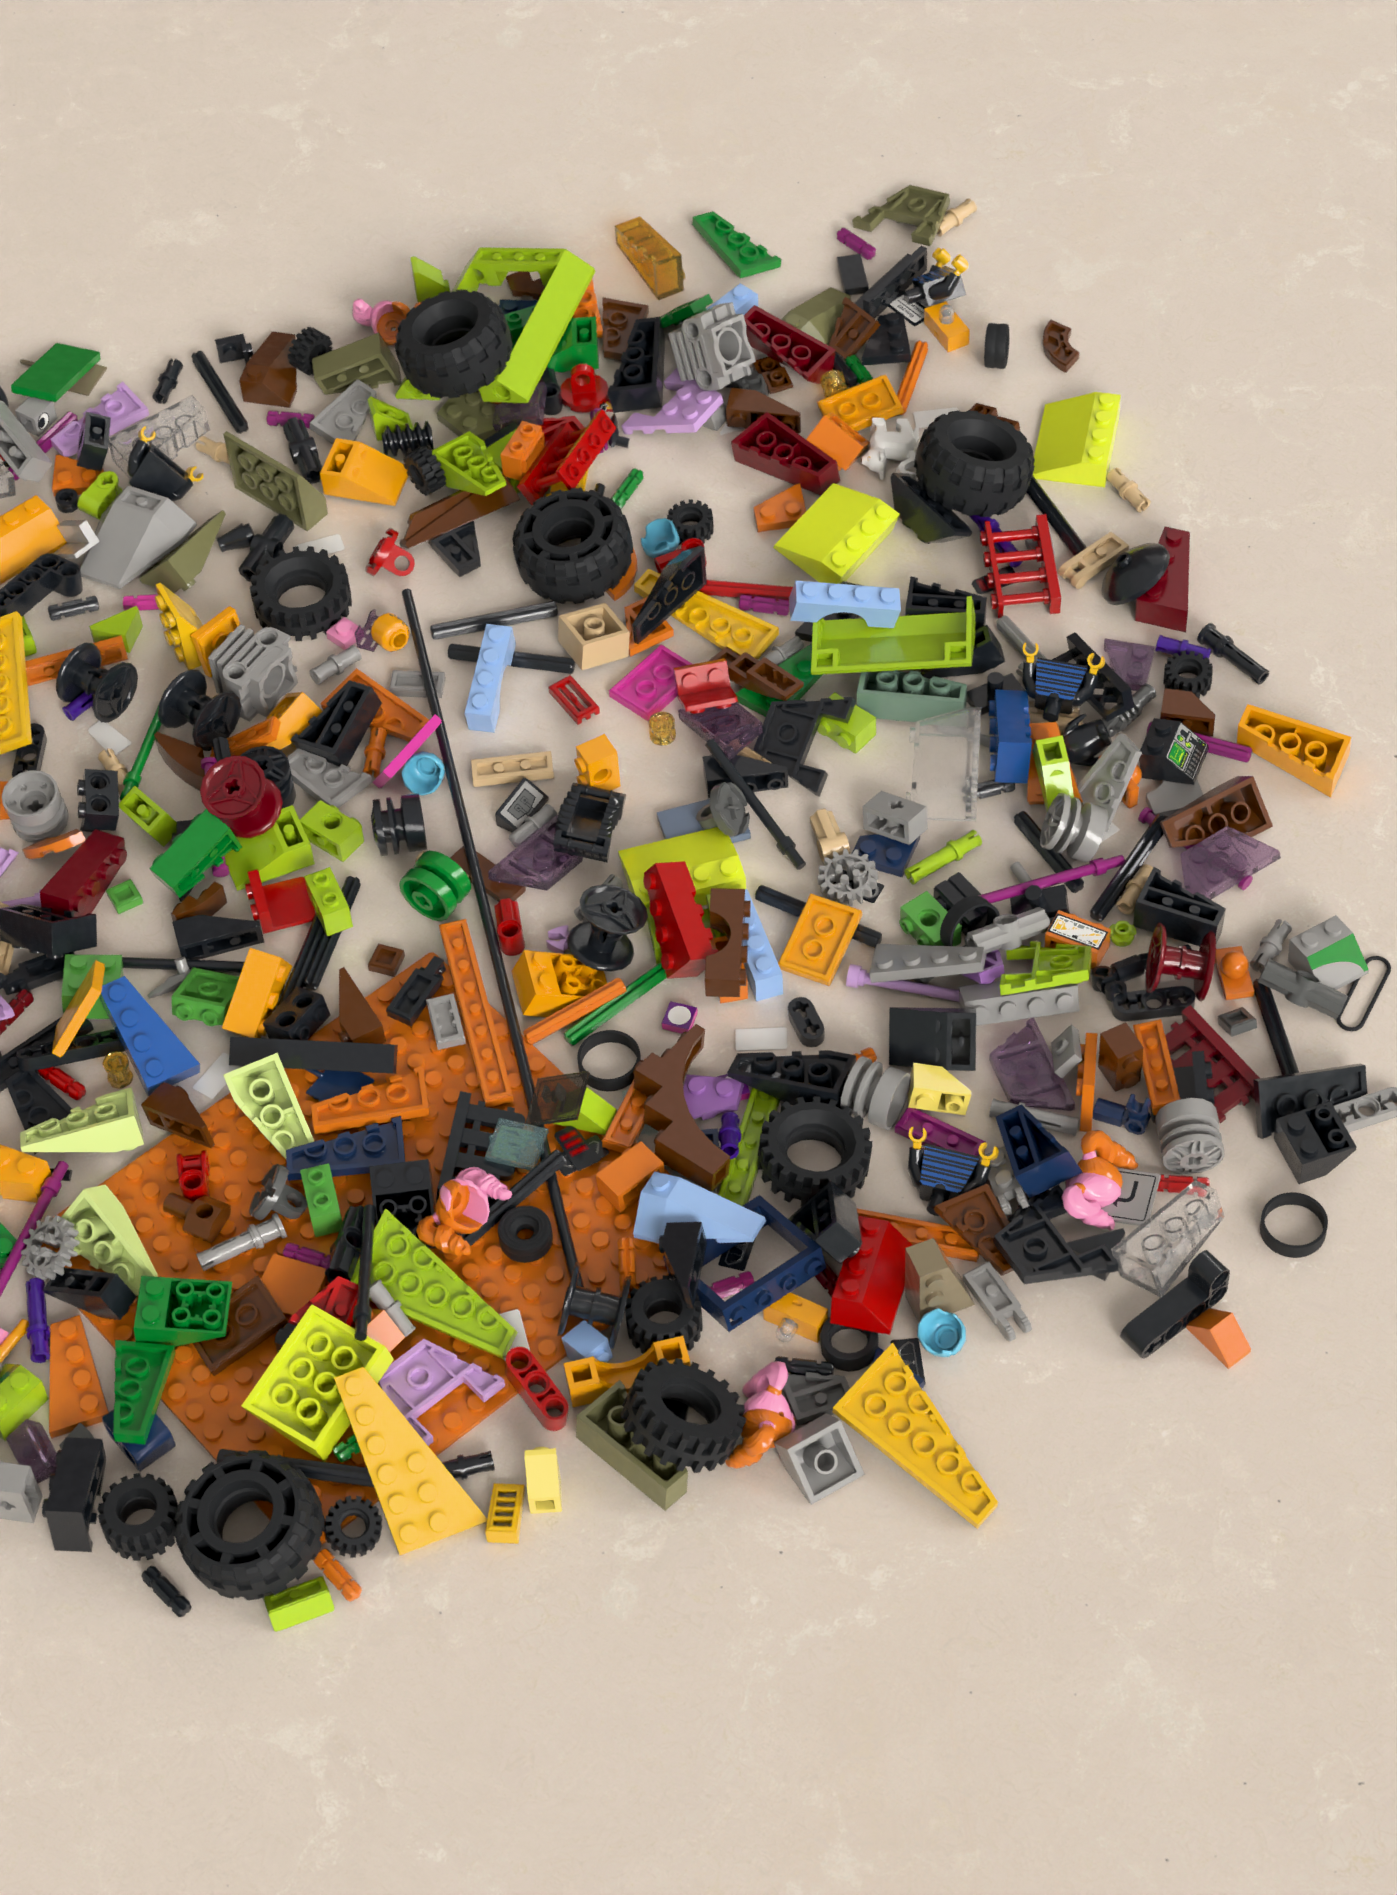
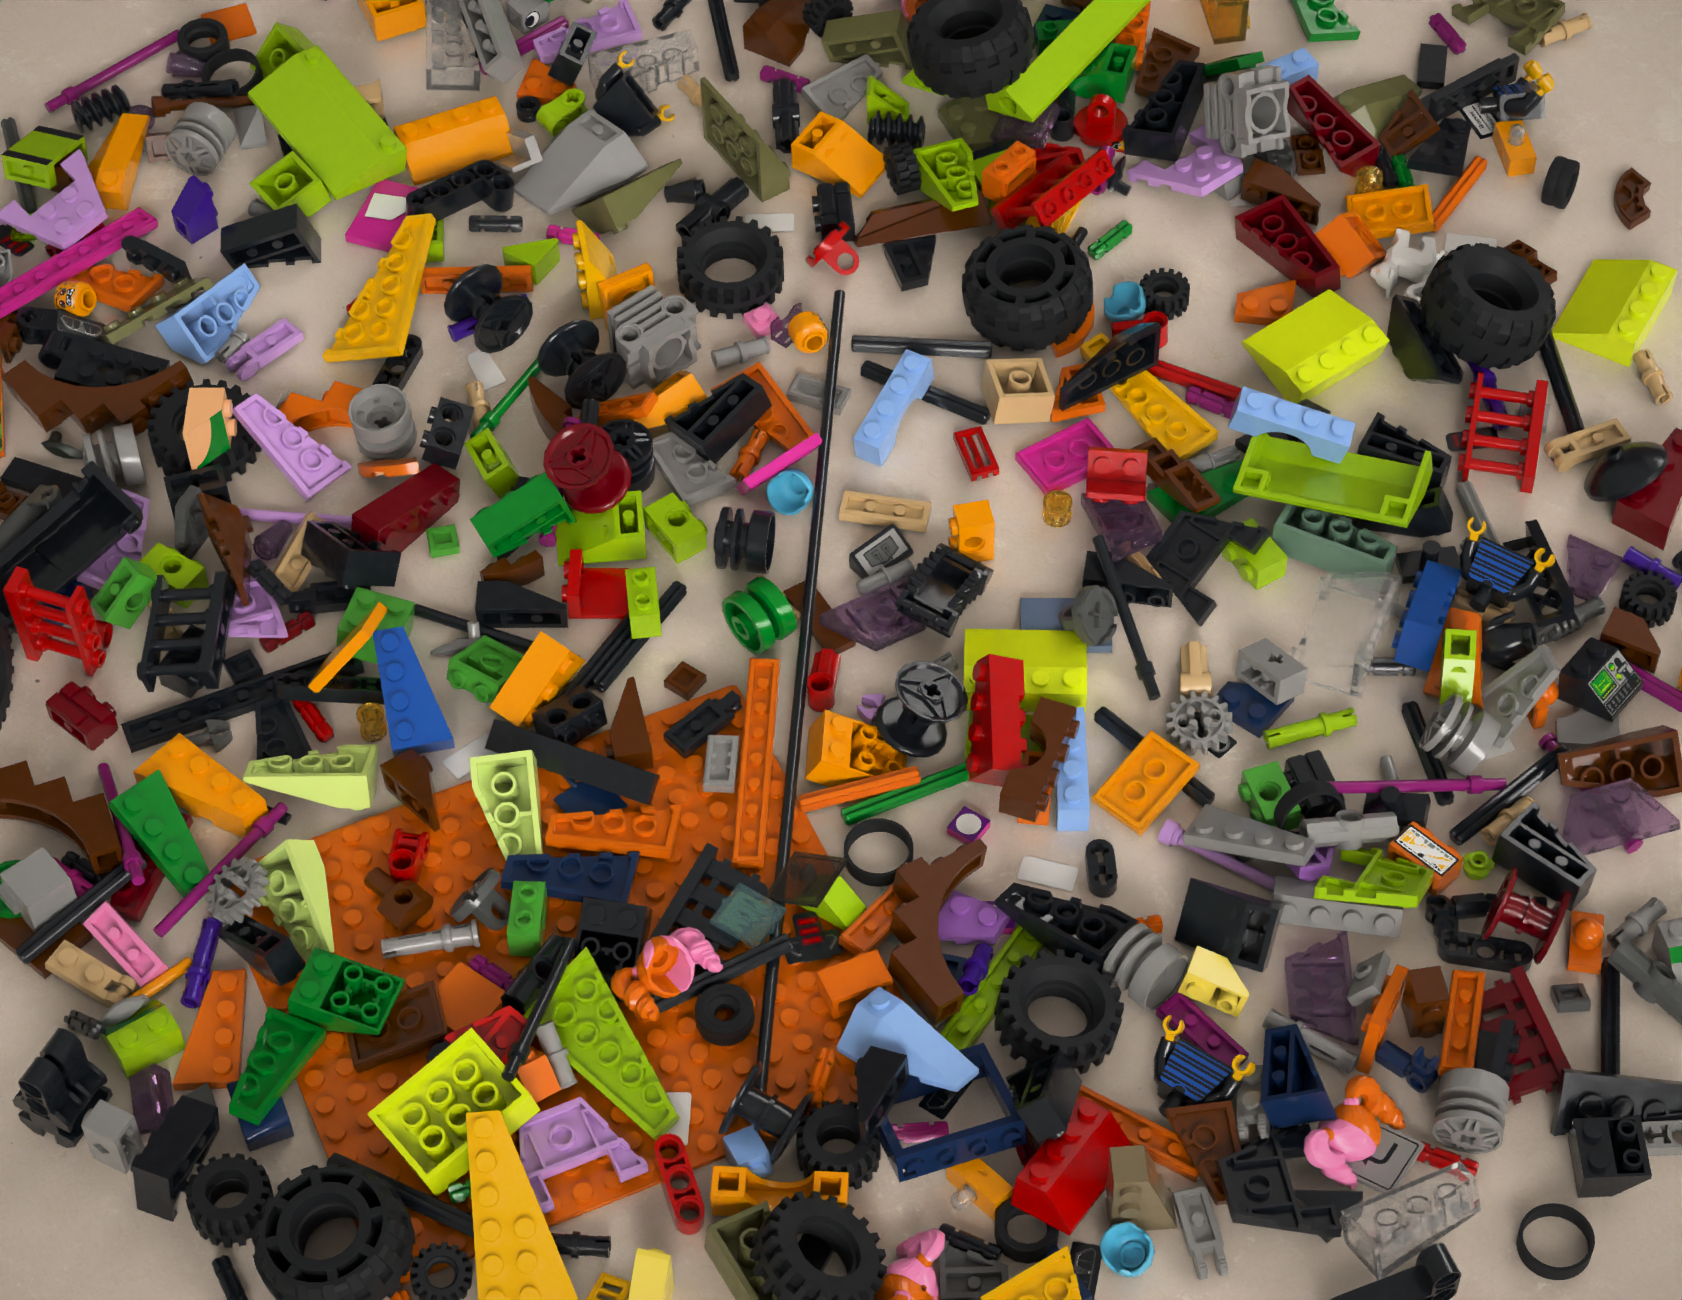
camera: 15 degrees right, 0 degrees up
(374, 519) = (833, 206): none -> black brick

